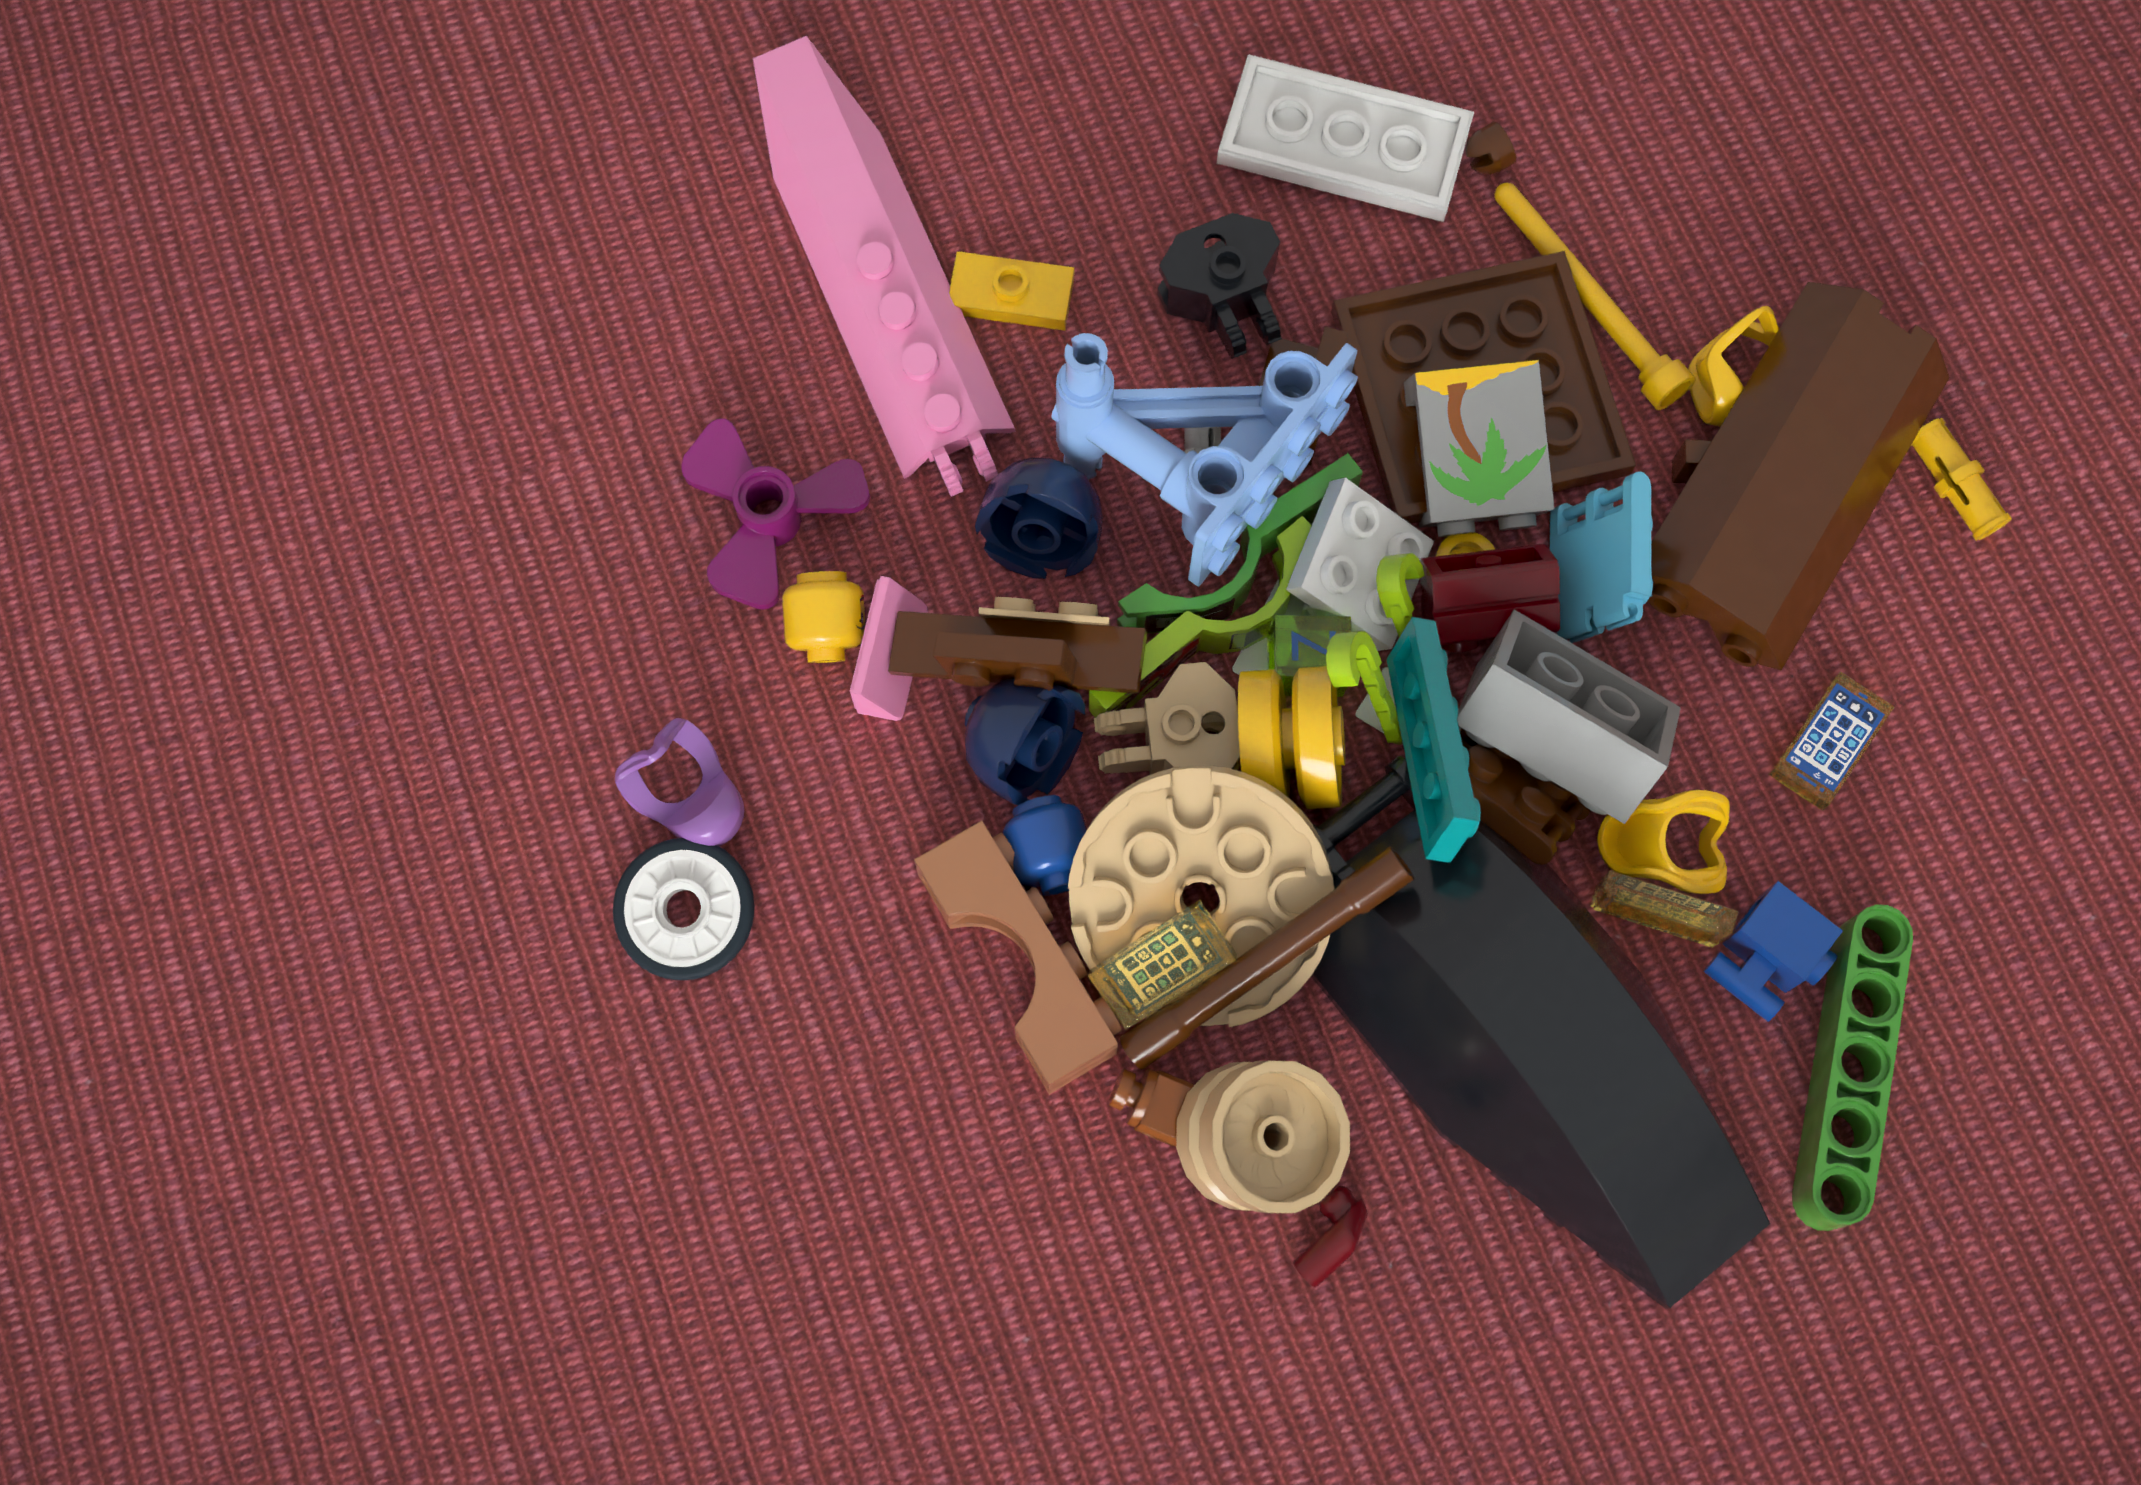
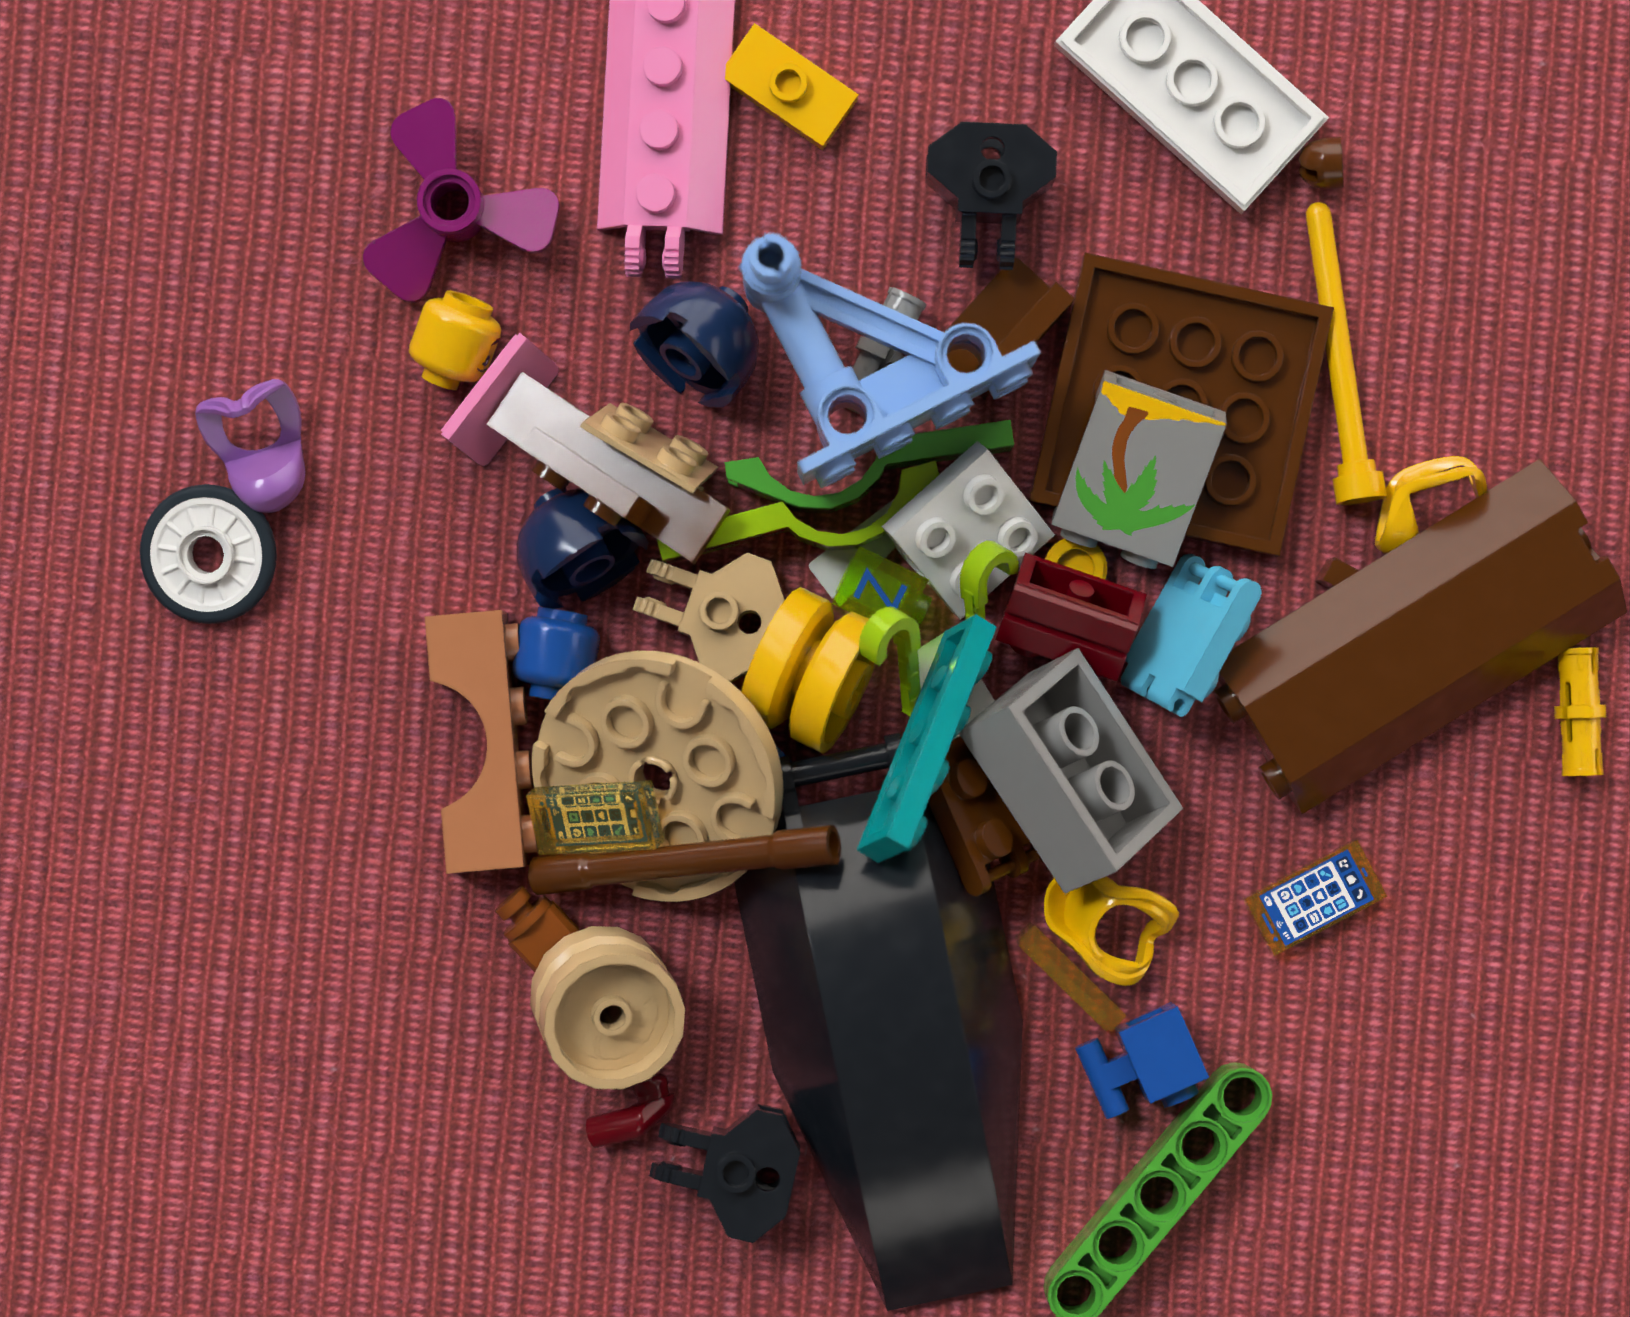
camera: 25 degrees right, 15 degrees up
(1459, 1236) = (731, 1168): none -> black hinge

